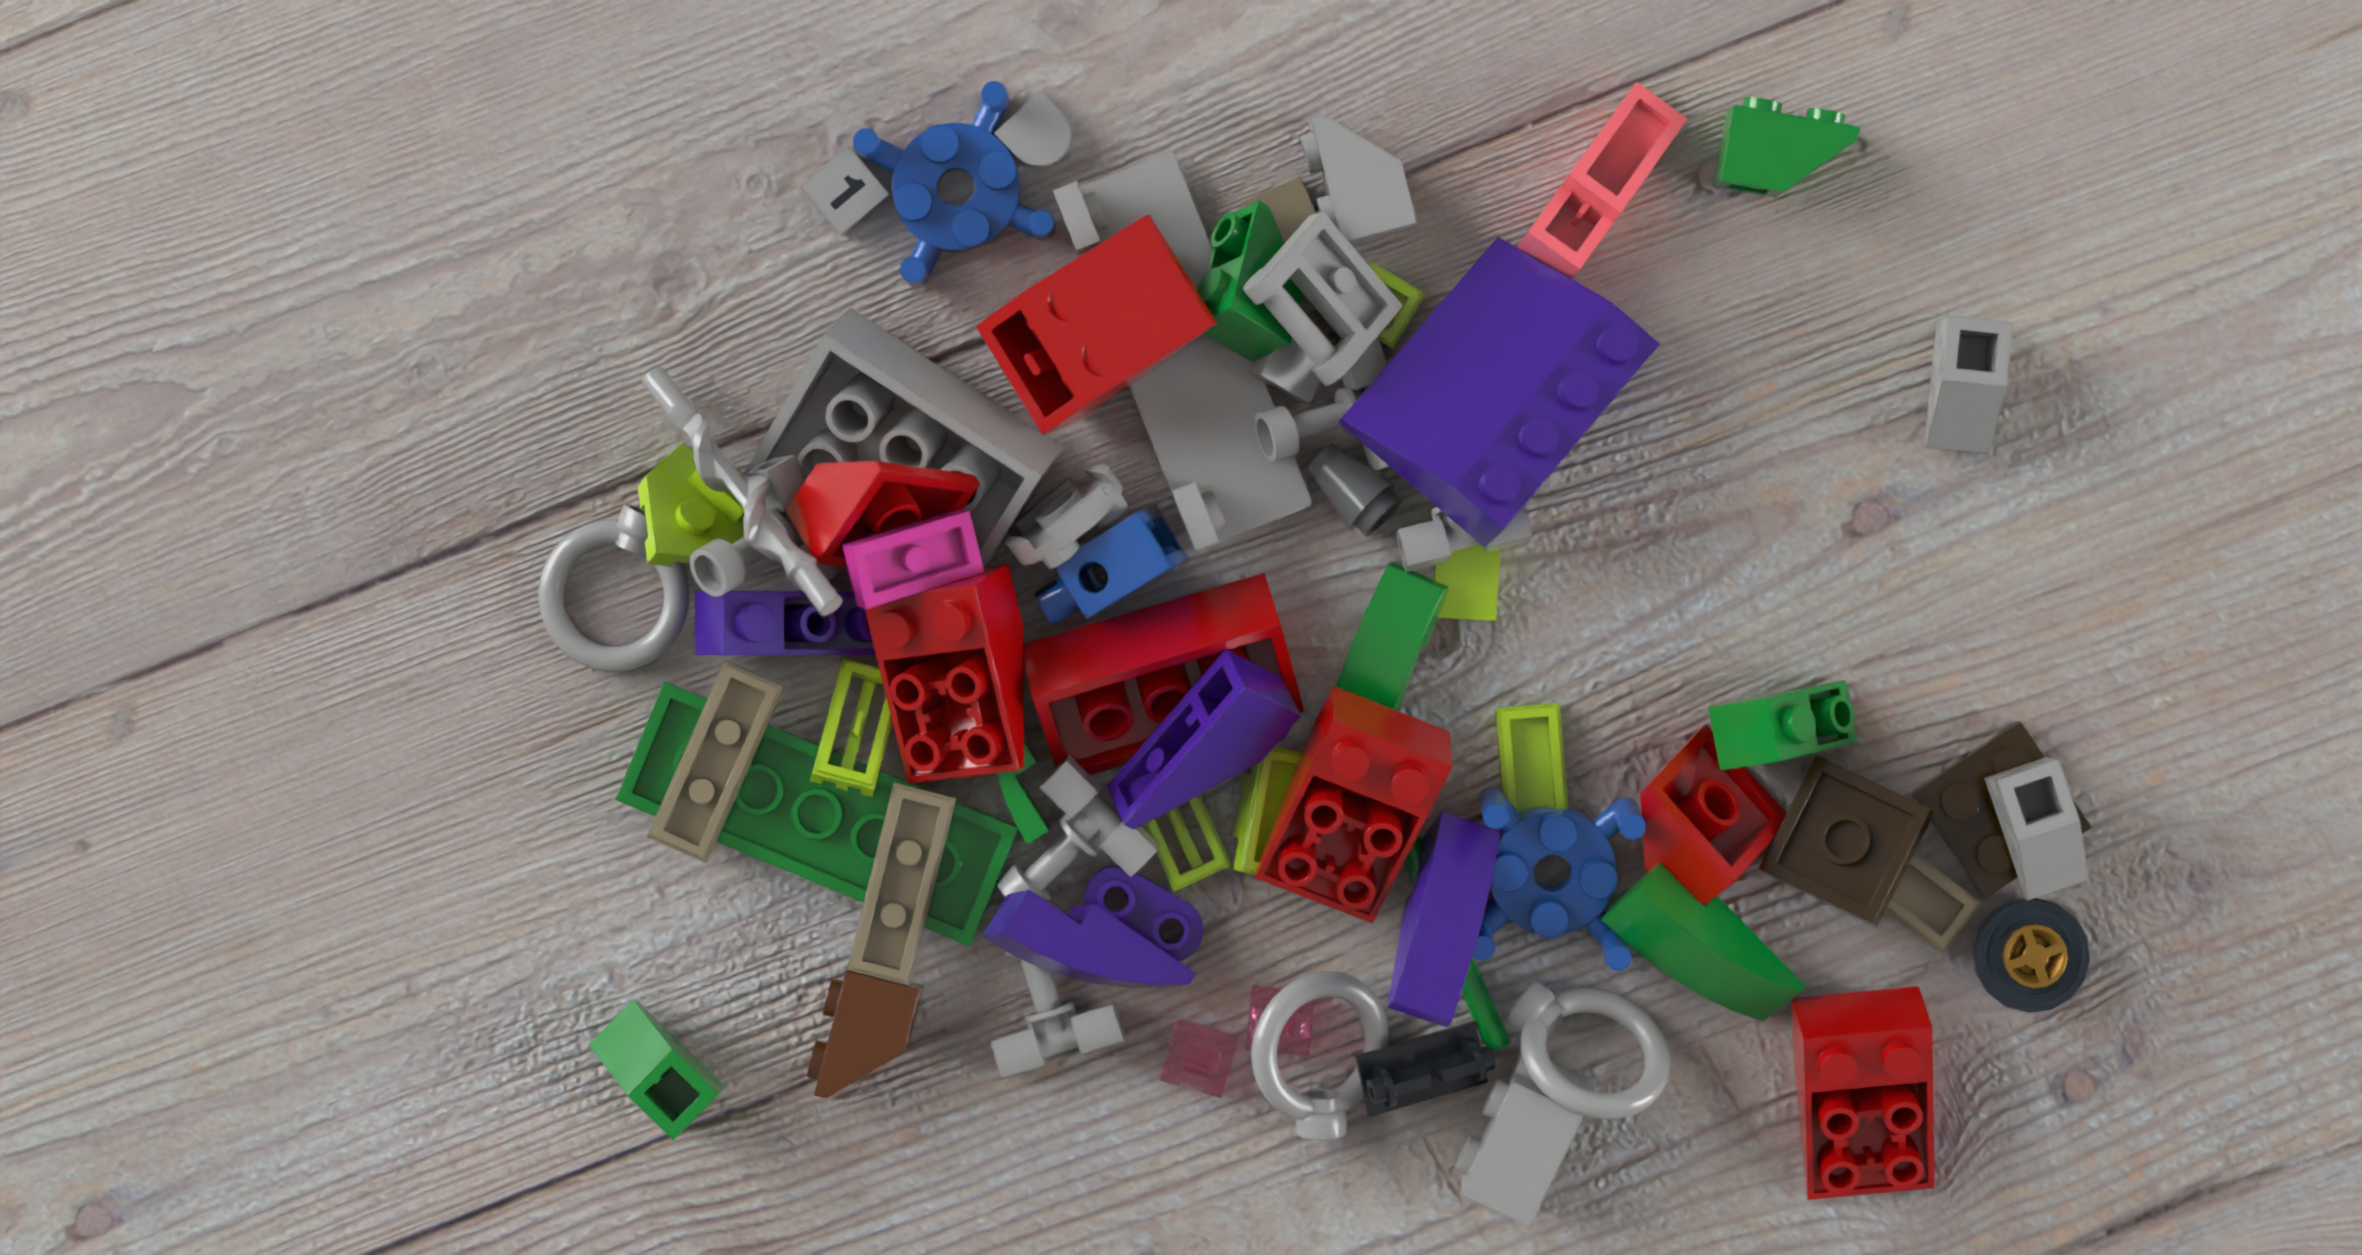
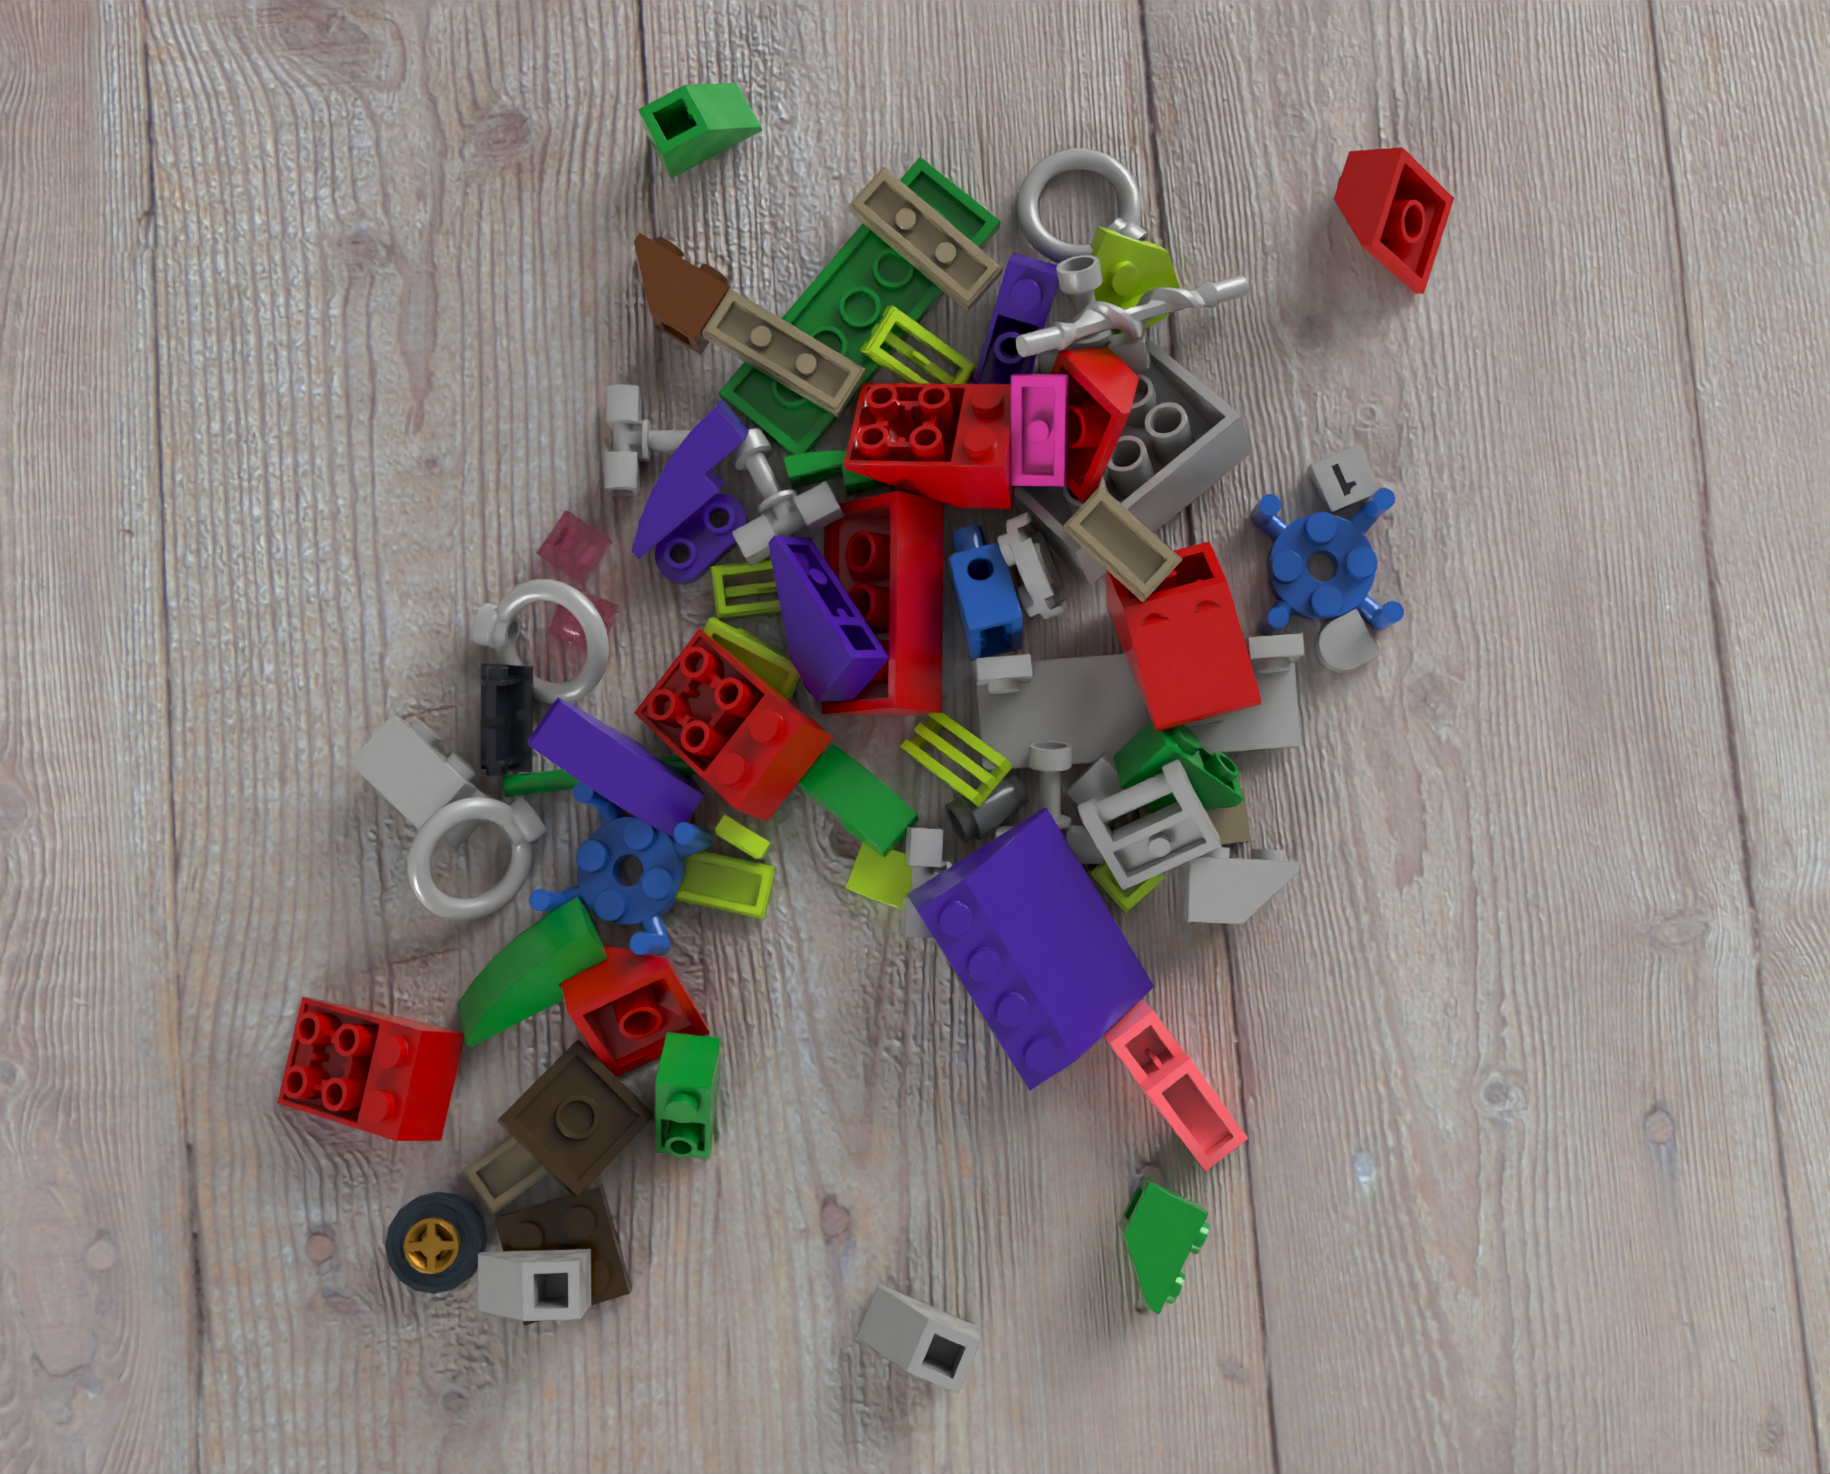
camera: 105 degrees right, 5 degrees down
(515, 224) = (1394, 211): none -> red slope
(1018, 425) = (1121, 544): none -> dark tan tile
(1291, 582) = (928, 734): none -> lime tile
(1475, 753) = (743, 838): none -> lime tile

